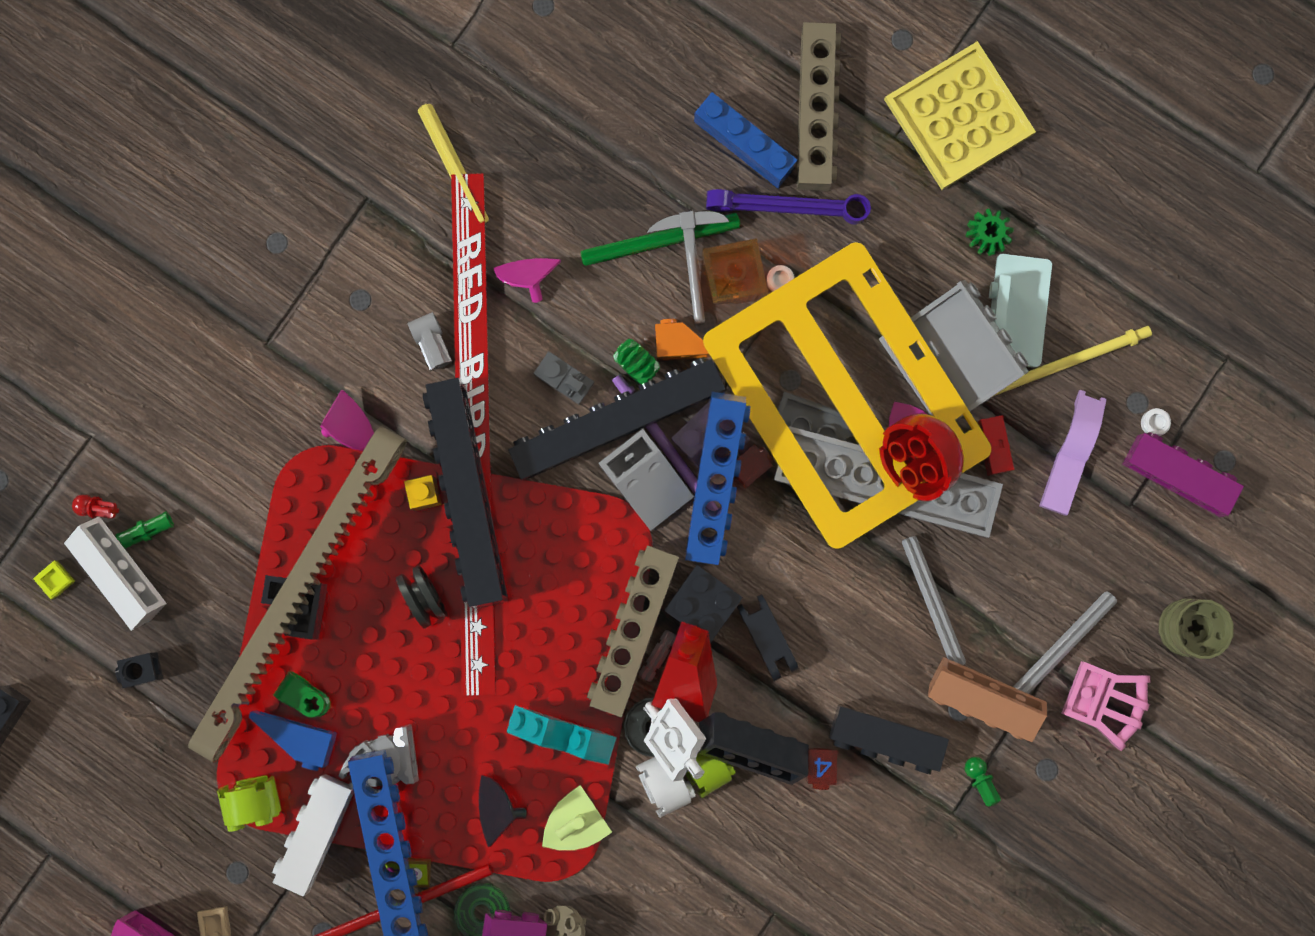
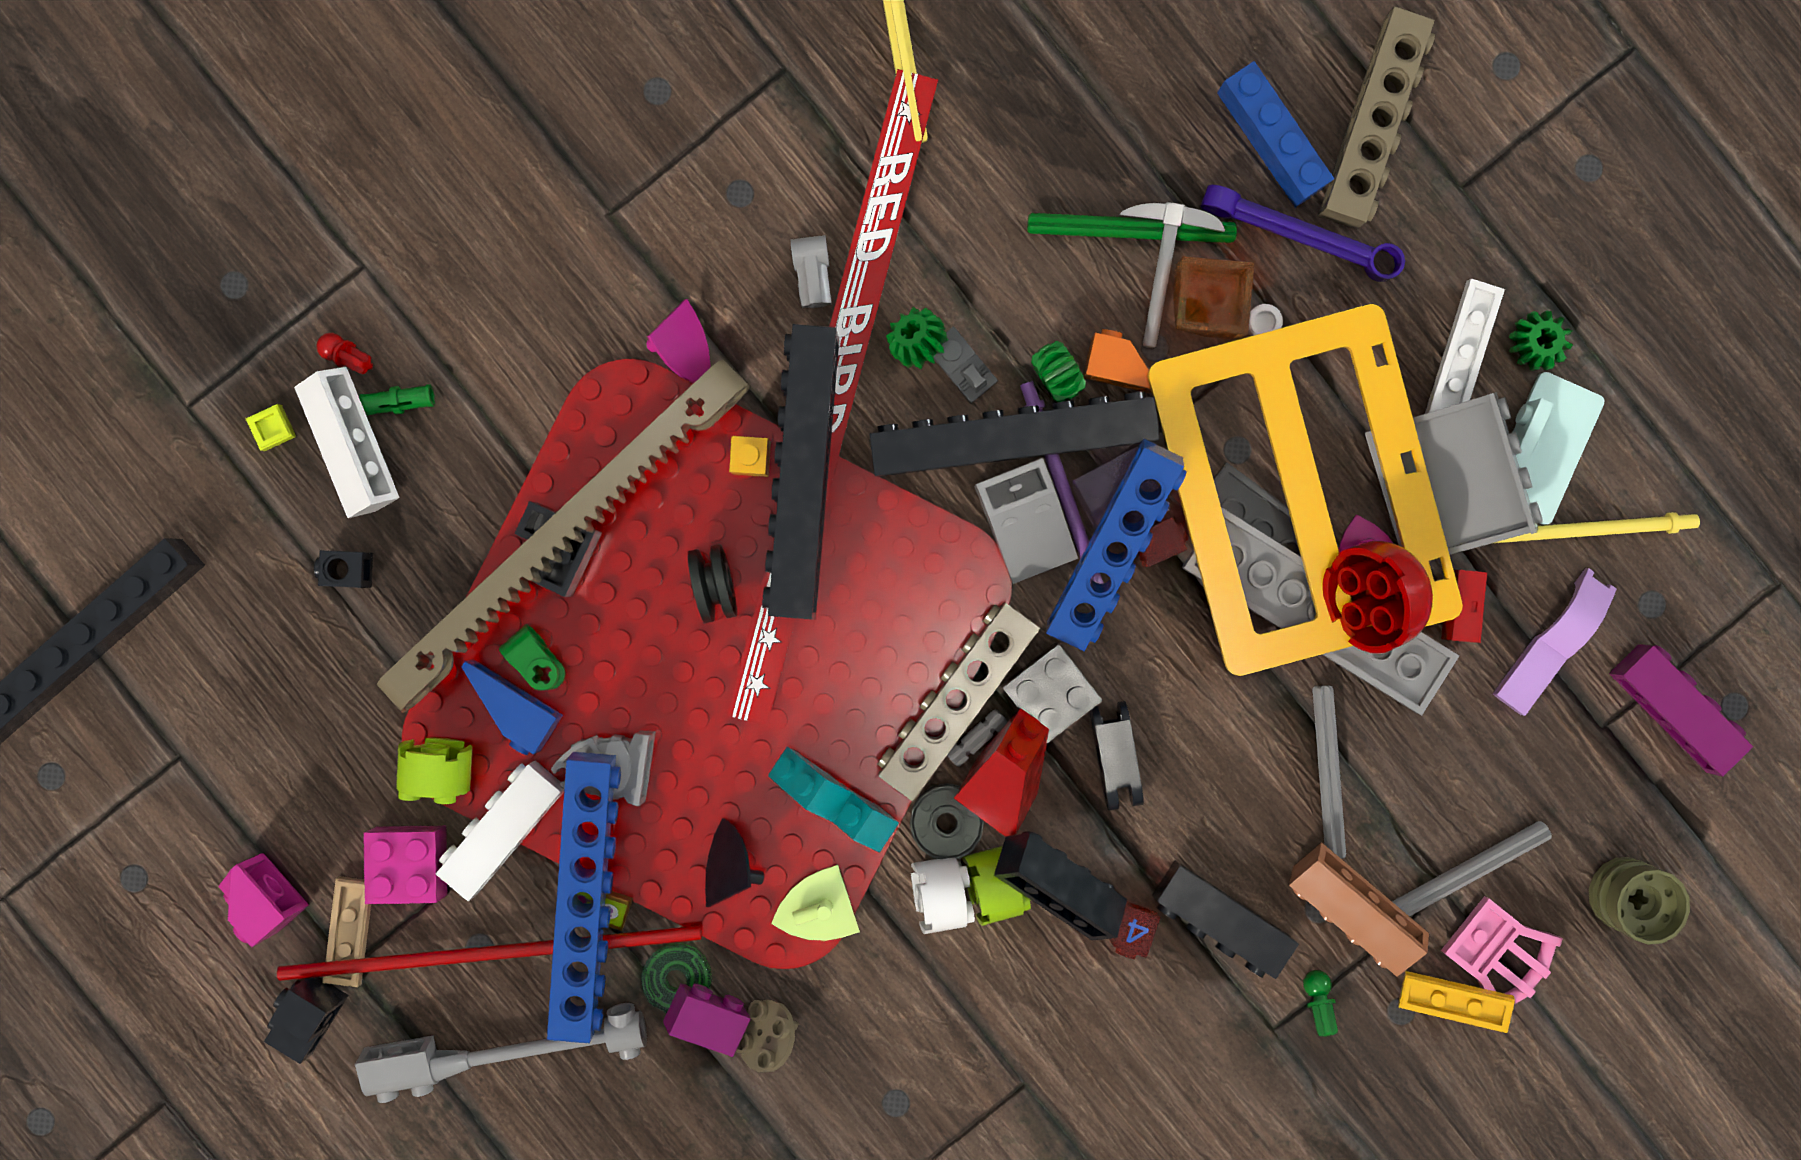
camera: 15 degrees right, 5 degrees up
(246, 884) = (404, 864): none -> dark pink brick
(523, 367) = (917, 338): none -> green gear
(527, 274) = (955, 222): dark pink shield -> none
(674, 739) = (970, 850): white plate -> none
(935, 251) = (1465, 345): none -> white plate
(959, 115) = (1549, 183): light yellow plate -> none
(1084, 748) = (1456, 1001): none -> yellow tile
(1156, 421) = (1667, 634): white tile -> none

